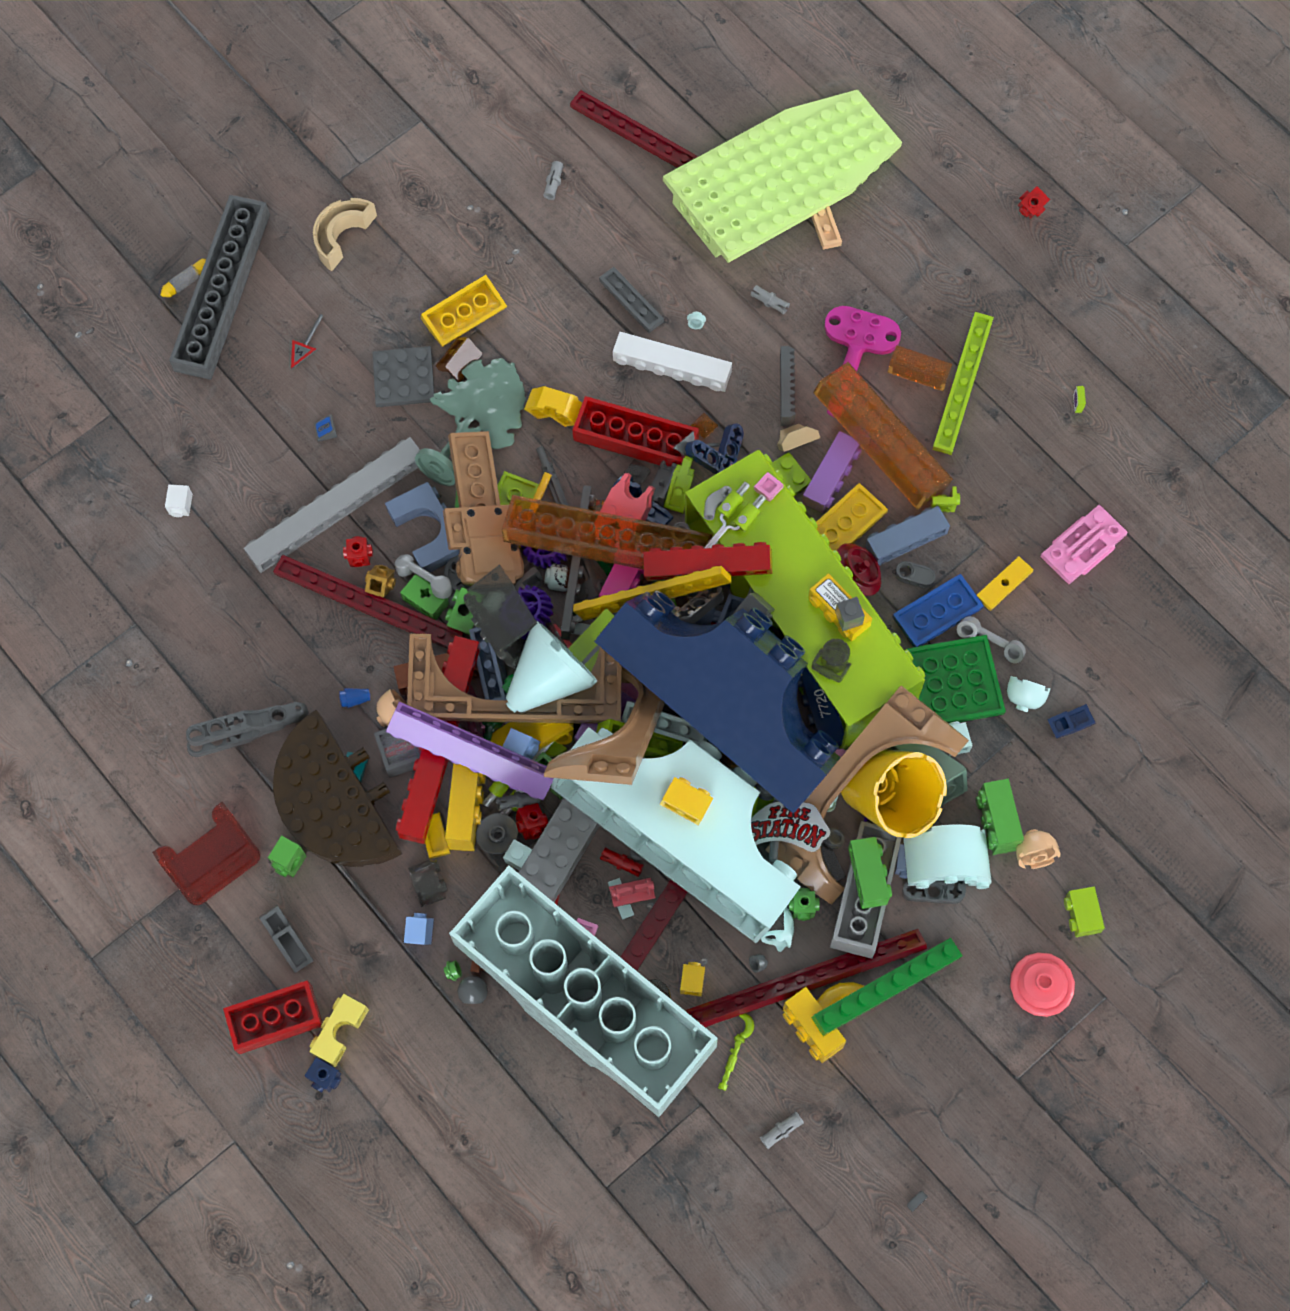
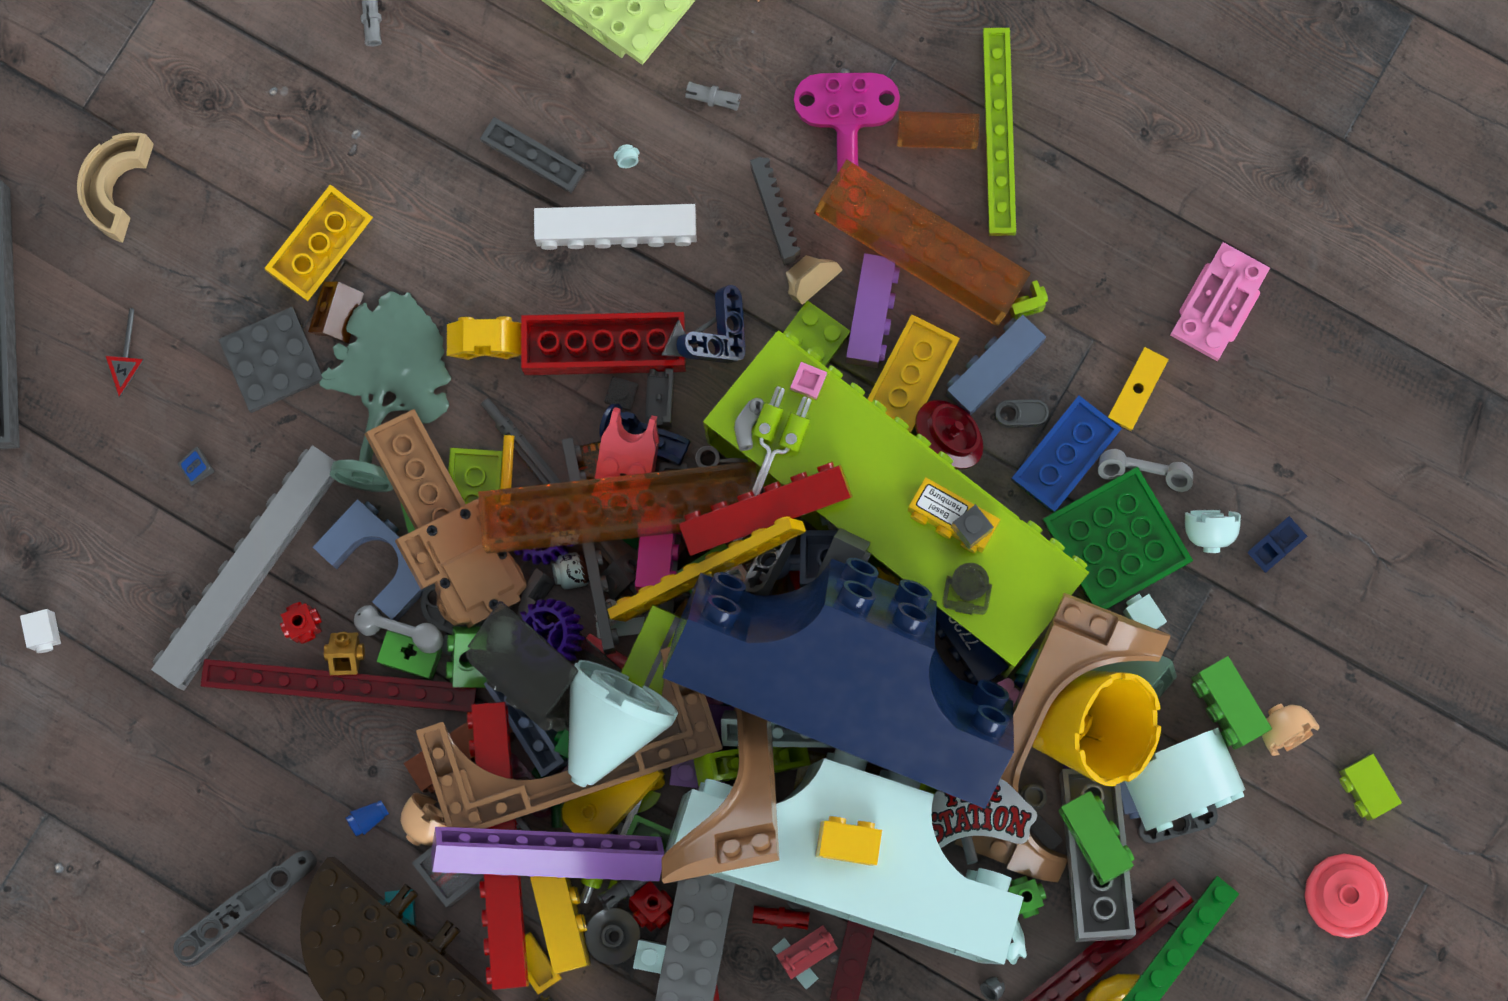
camera: 15 degrees left, 10 degrees up
(521, 744) = (605, 816): light blue brick -> none
(680, 483) = (685, 397): lime hinge -> none
(705, 425) = (686, 298): clear orange slope -> none
(1079, 399) = (1154, 106): lime tile -> none

